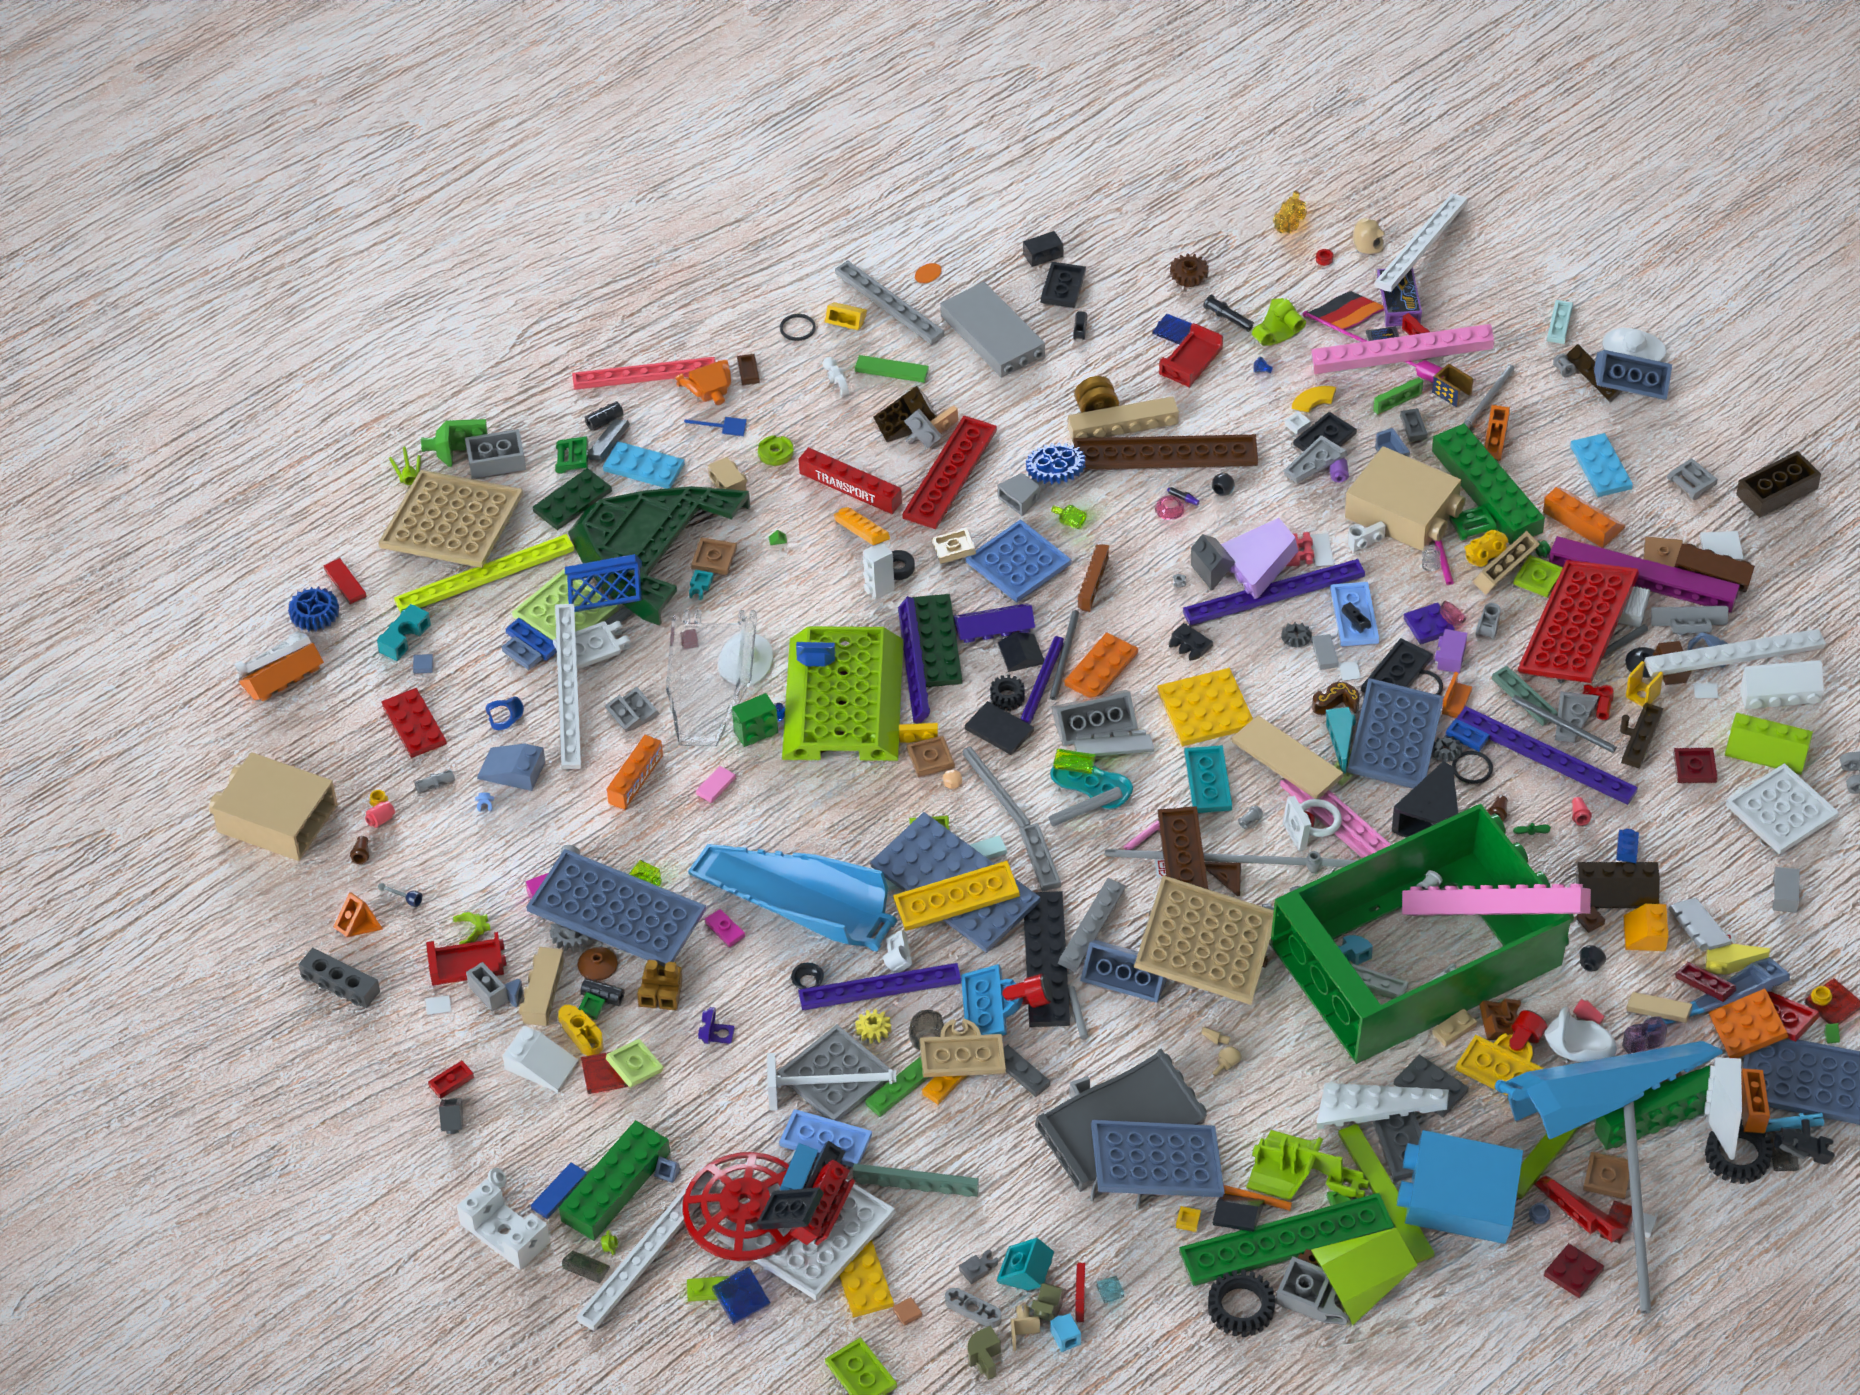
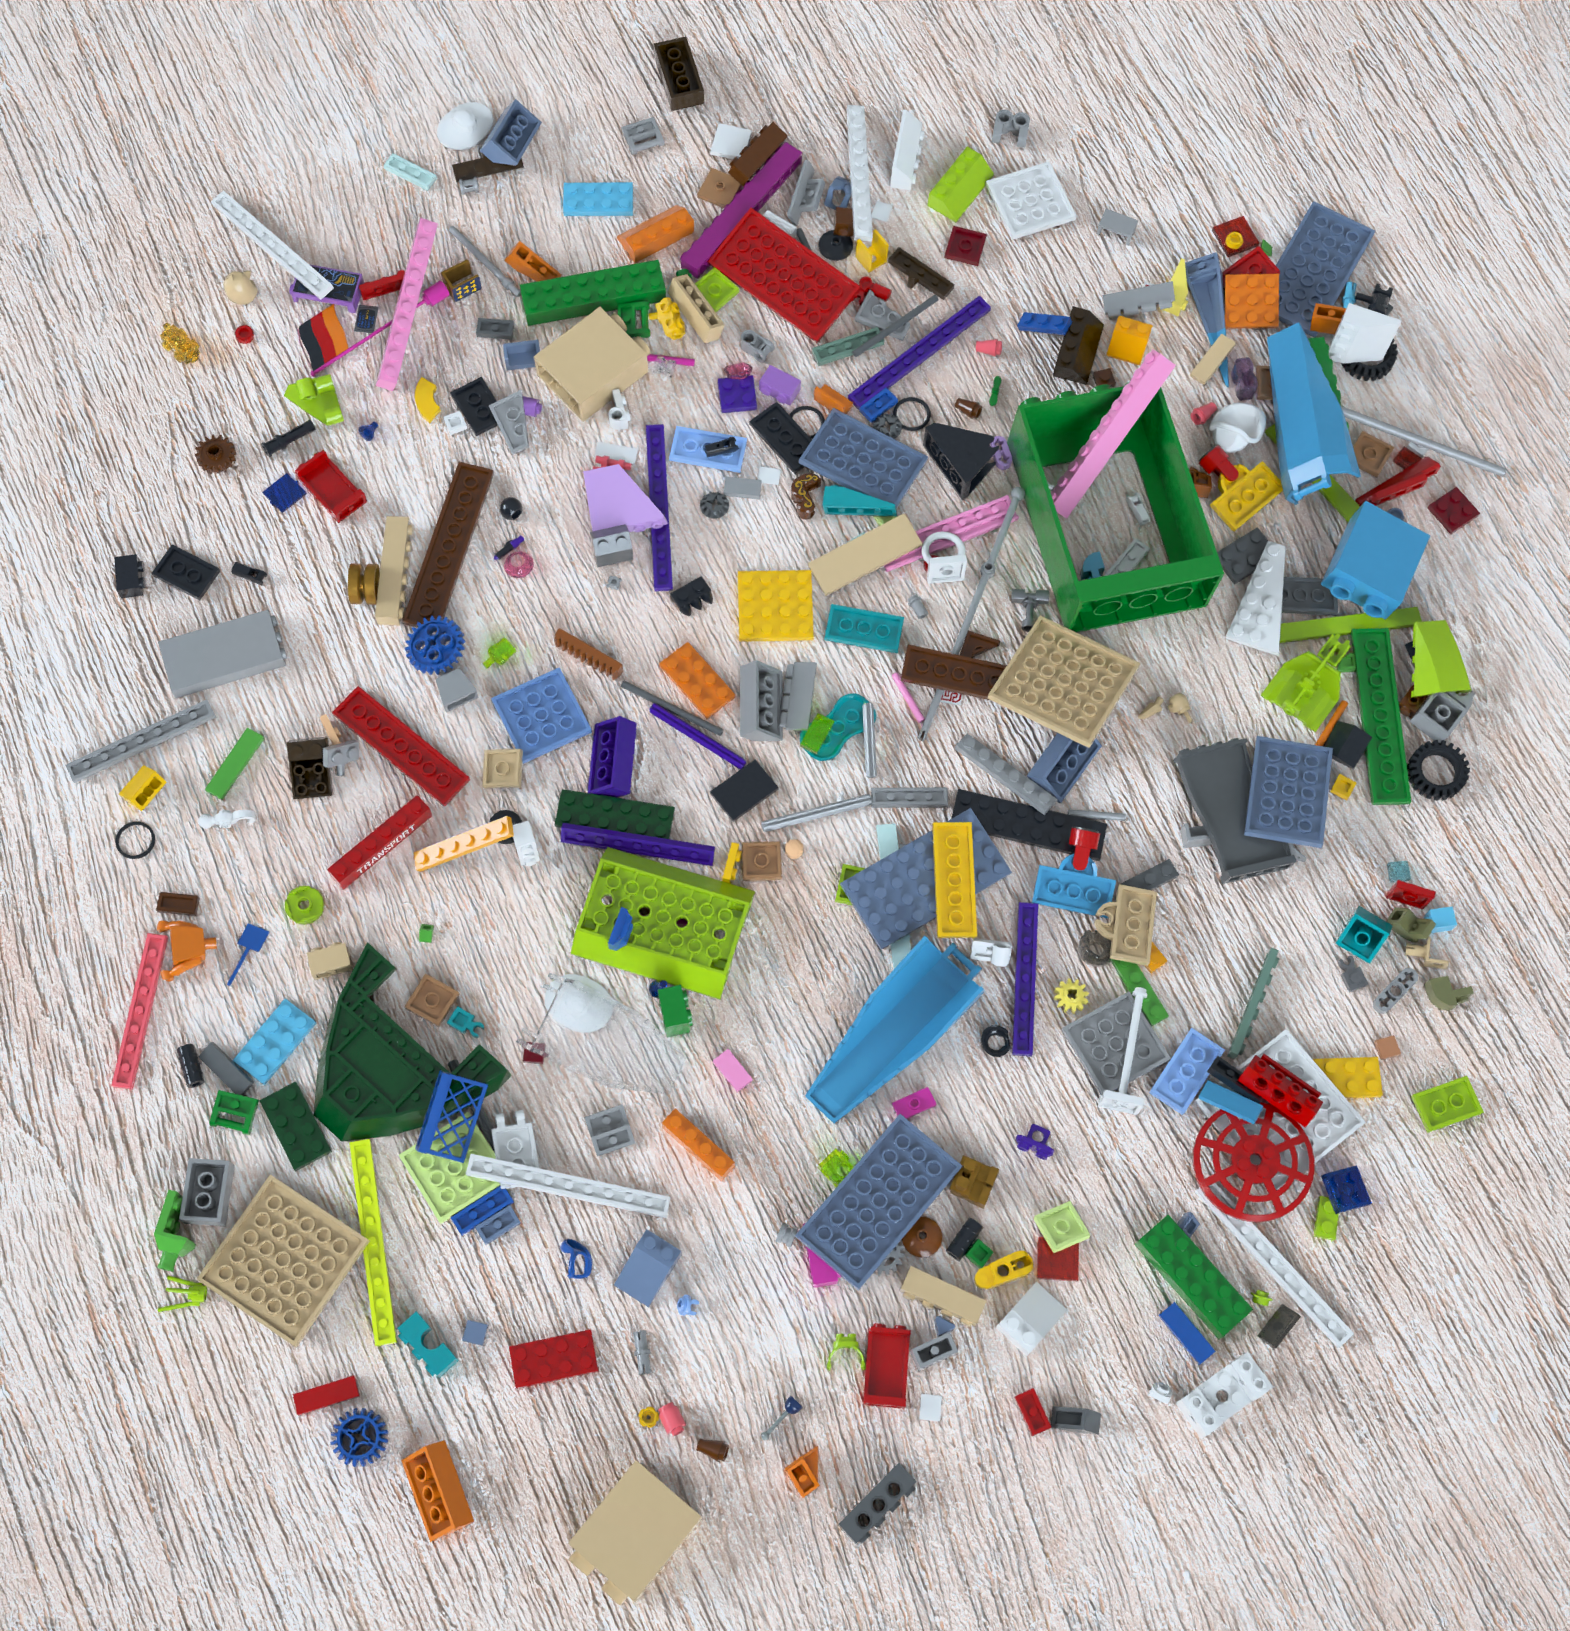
camera: 80 degrees left, 20 degrees up
(295, 642) = (405, 1464): white plate -> none
(790, 1208) = (1294, 1118): black plate -> none
(928, 273) = (110, 694): orange sticker -> none
(1004, 684) = (699, 761): black tyre -> none
(1020, 651) = (655, 746): black slope -> none
(1398, 395) = (453, 329): bright green plate -> none
(1705, 981) = (1196, 317): dark red tile -> none

